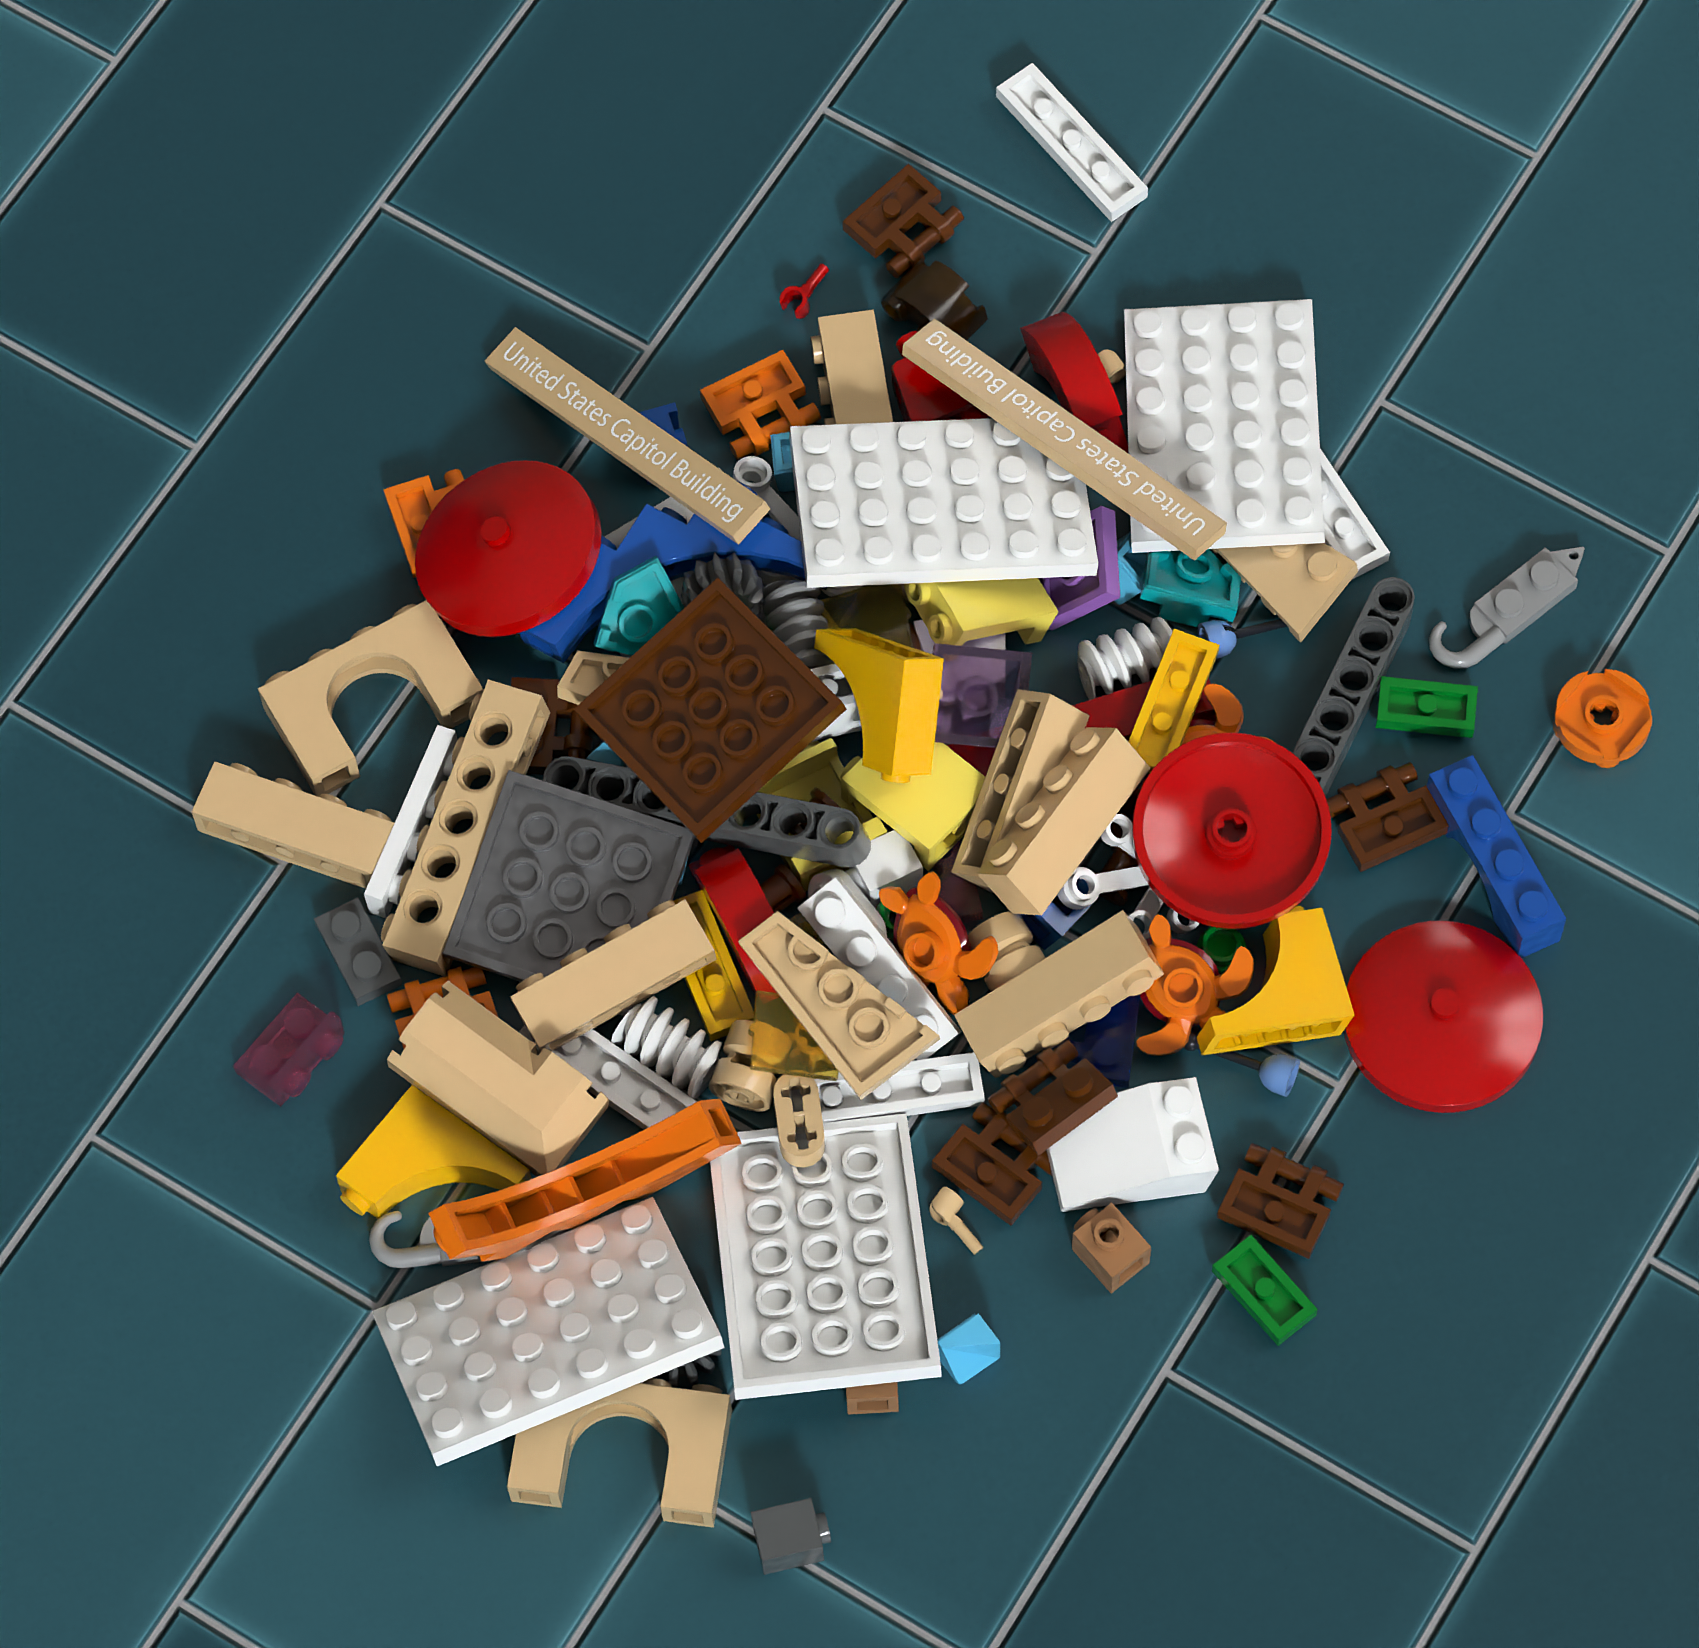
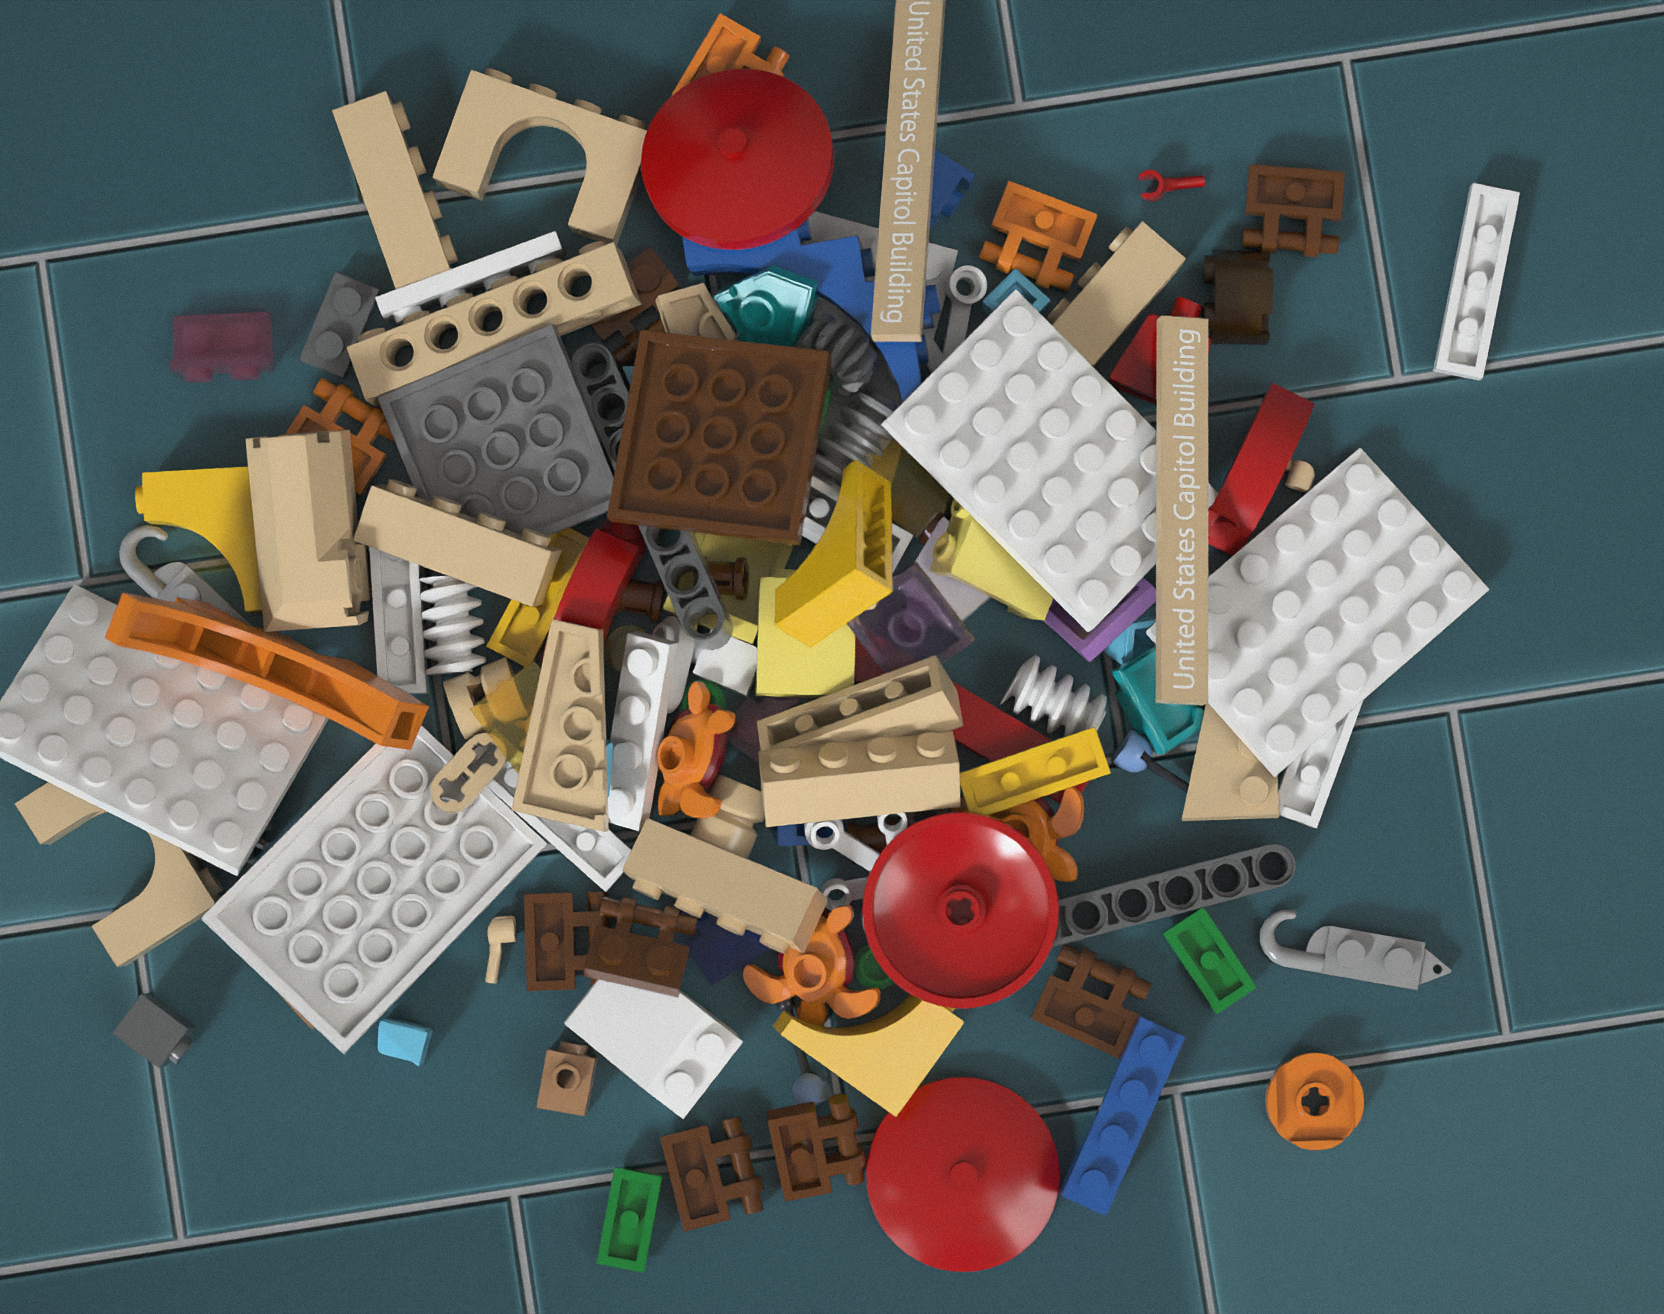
camera: 50 degrees right, 20 degrees up
(1317, 1108) = (800, 1150): none -> reddish brown plate

